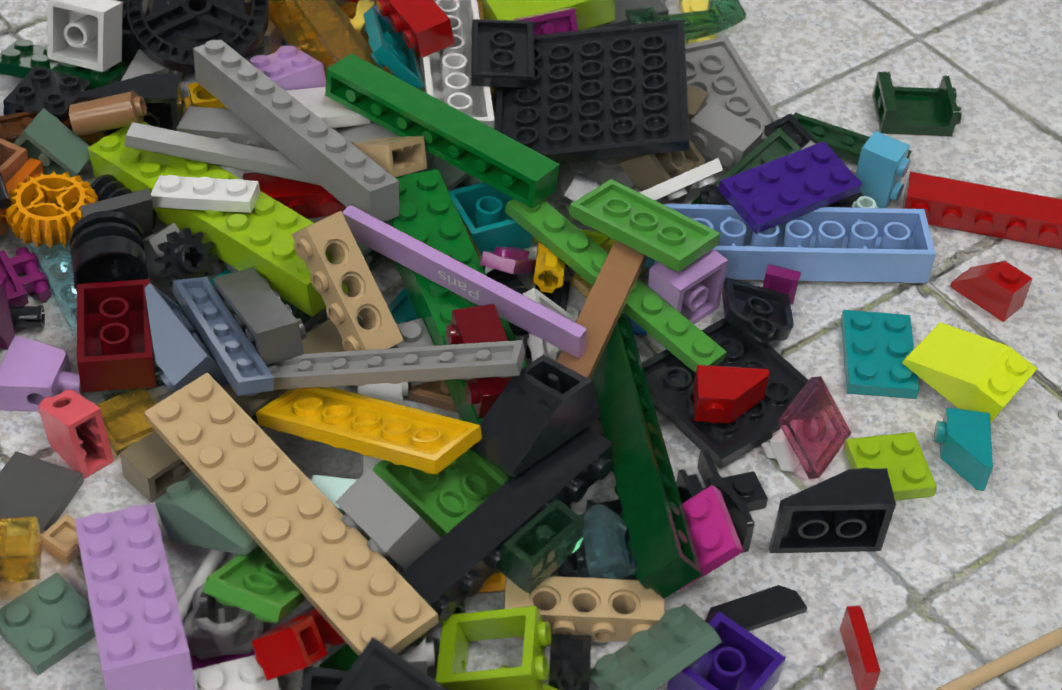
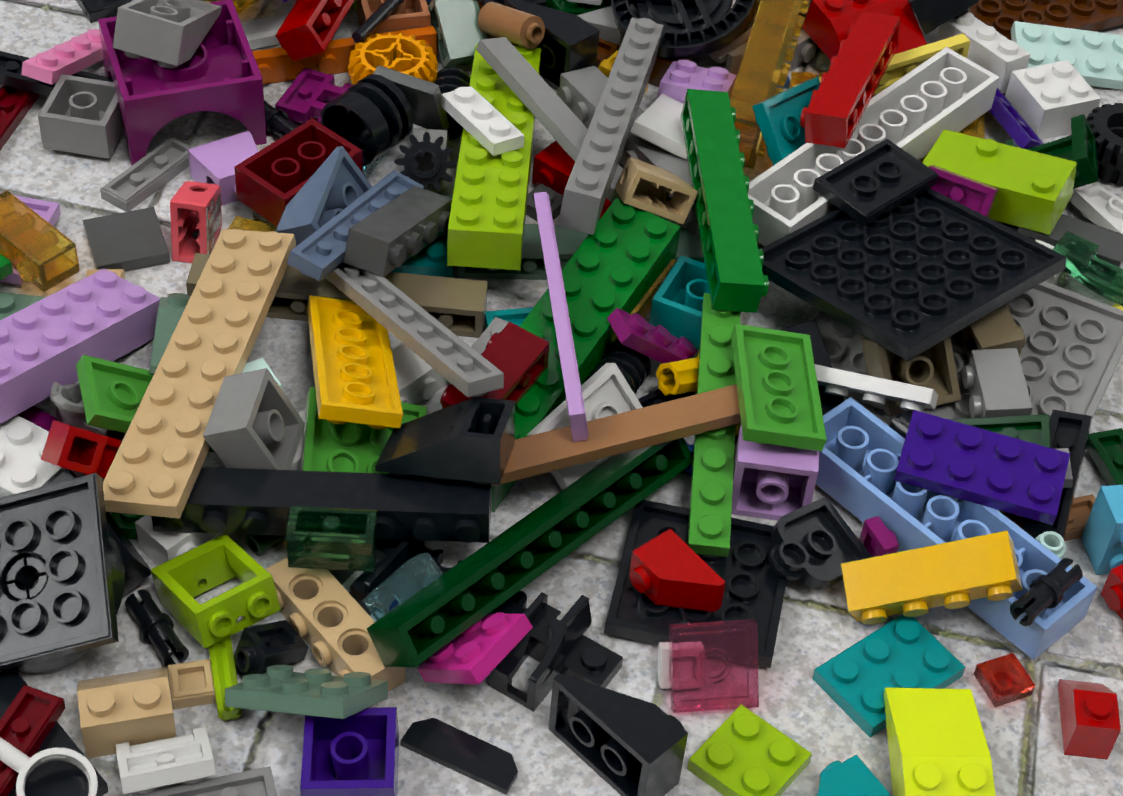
camera: 50 degrees right, 0 degrees up
(350, 268) = (492, 196): tan brick -> none
(850, 274) = (931, 578): none -> yellow brick
(914, 231) = (1046, 592): none -> black pin
(934, 305) = (1004, 679): none -> clear red plate

